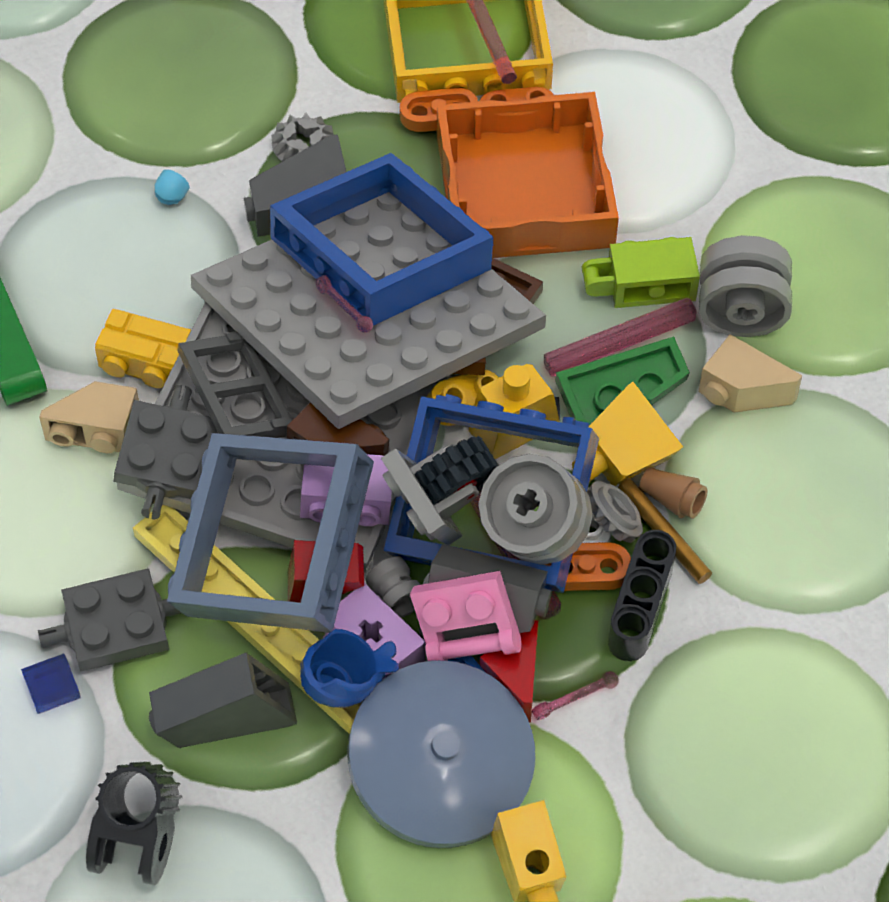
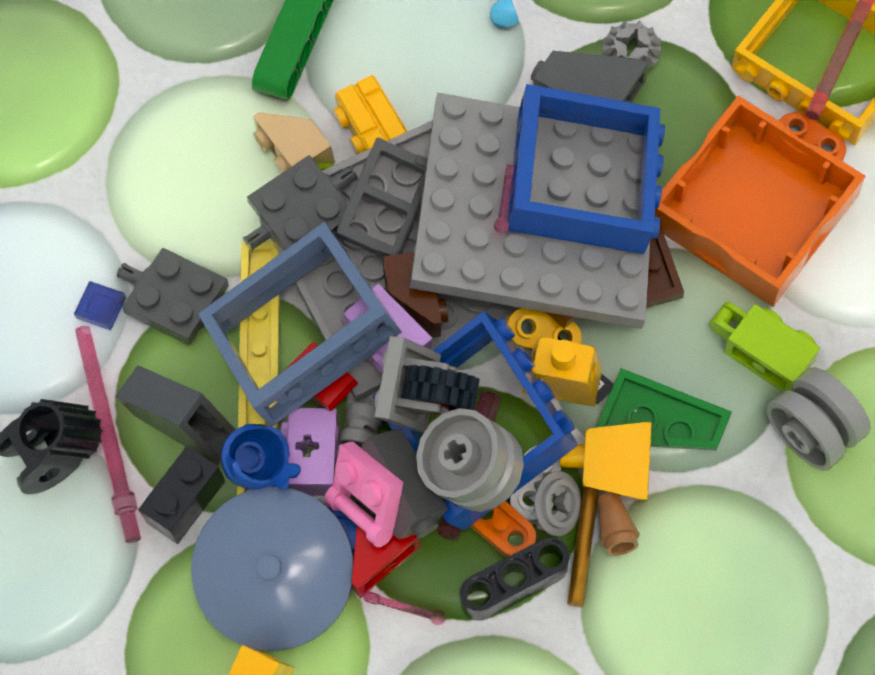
camera: 50 degrees right, 10 degrees up
(246, 817) = (123, 500): none -> clear pink bar
(299, 764) = (182, 494): none -> black brick
(419, 108) = (748, 89): orange plate -> none
(620, 336) = (699, 378): clear pink axle -> none
(747, 378) = (753, 486): tan slope -> none

